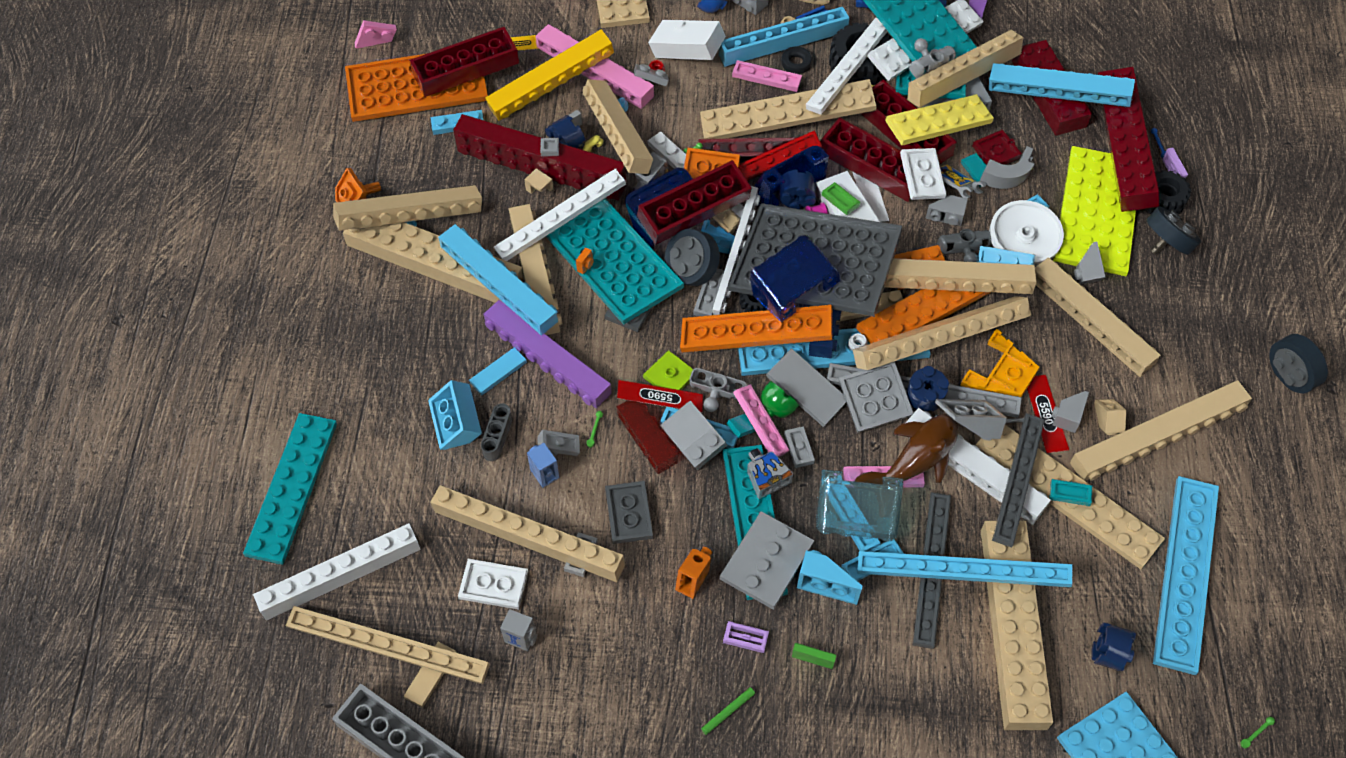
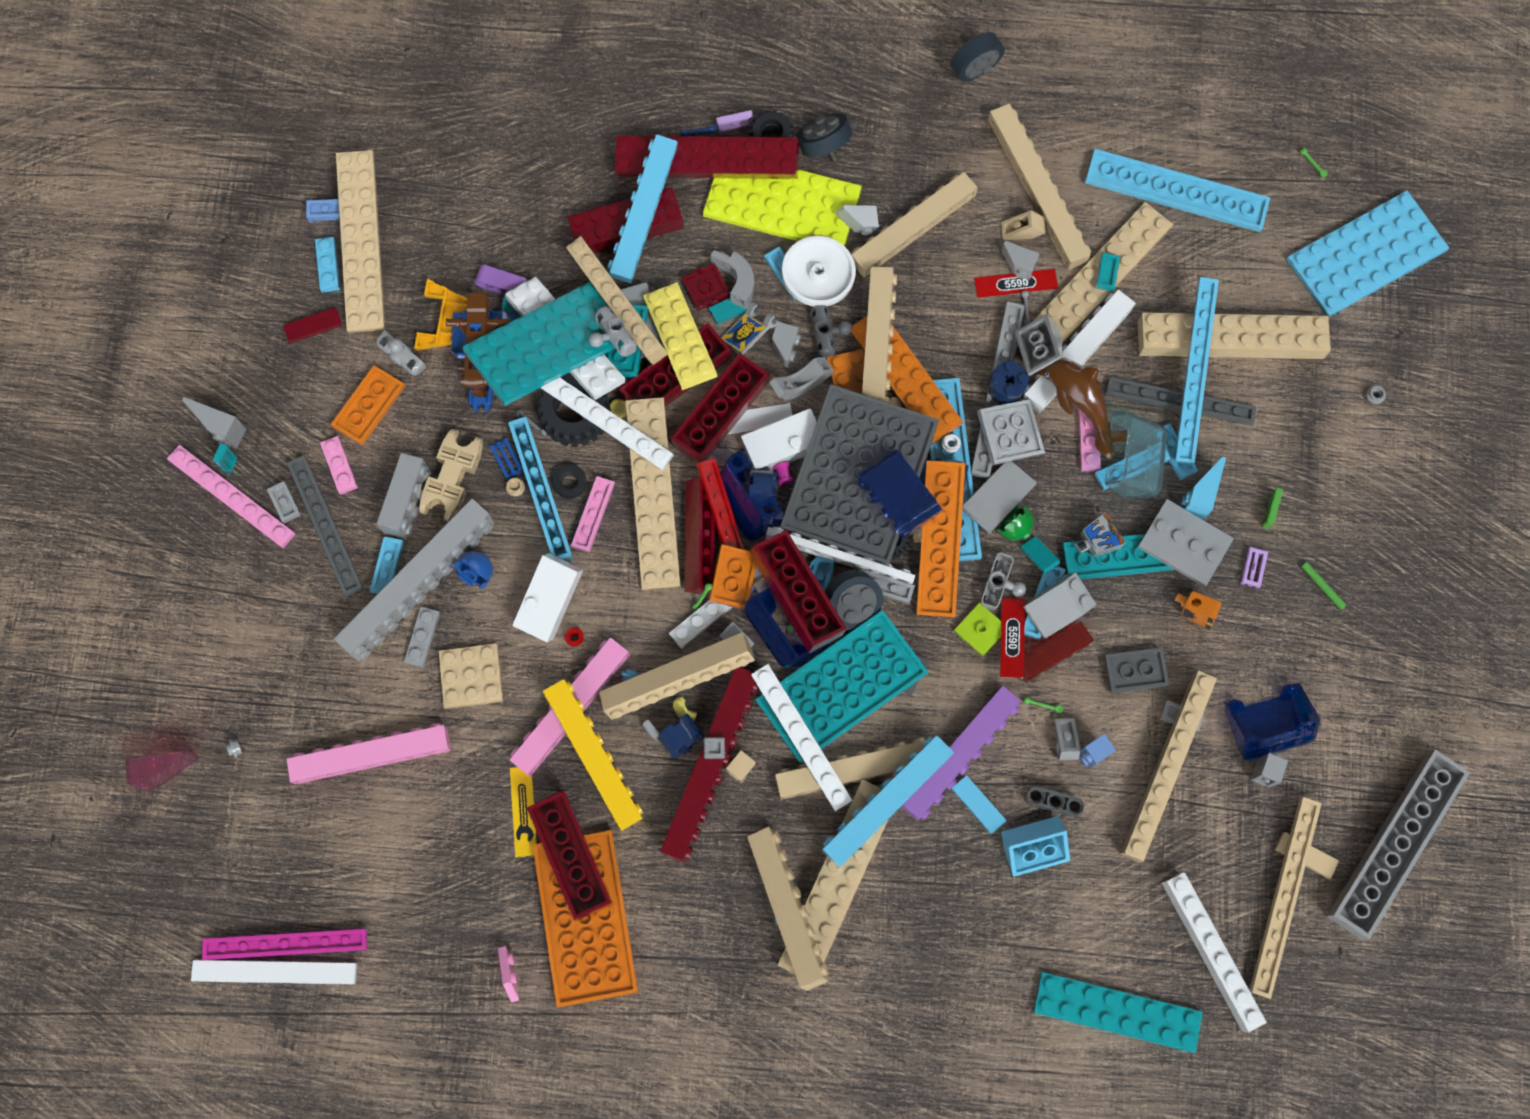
camera: 90 degrees left, 15 degrees up
(350, 188) = (753, 980): orange piece -> none
(446, 123) = (643, 865): medium azure plate -> none
(493, 584) = (1213, 800): white tile -> none
(570, 639) = (1273, 723): none -> clear blue windscreen
(584, 261) = (857, 710): orange plate -> none
(657, 76) = (590, 641): light grey plate -> none
(761, 420) = (1040, 541): bright pink tile -> none
(799, 447) = (1062, 508): light grey plate -> none
(840, 198) = (782, 444): bright green tile -> none
(902, 213) = (802, 381): none -> light grey arch
(923, 173) = (752, 359): white tile -> none
(941, 332) = (944, 363): tan brick -> none
(1003, 256) = (851, 293): medium azure tile -> none
(1011, 373) = (978, 307): light orange wing -> none
(1018, 480) = (1100, 313): dark grey tile -> none
(1113, 647) = (1255, 259): dark blue brick -> none

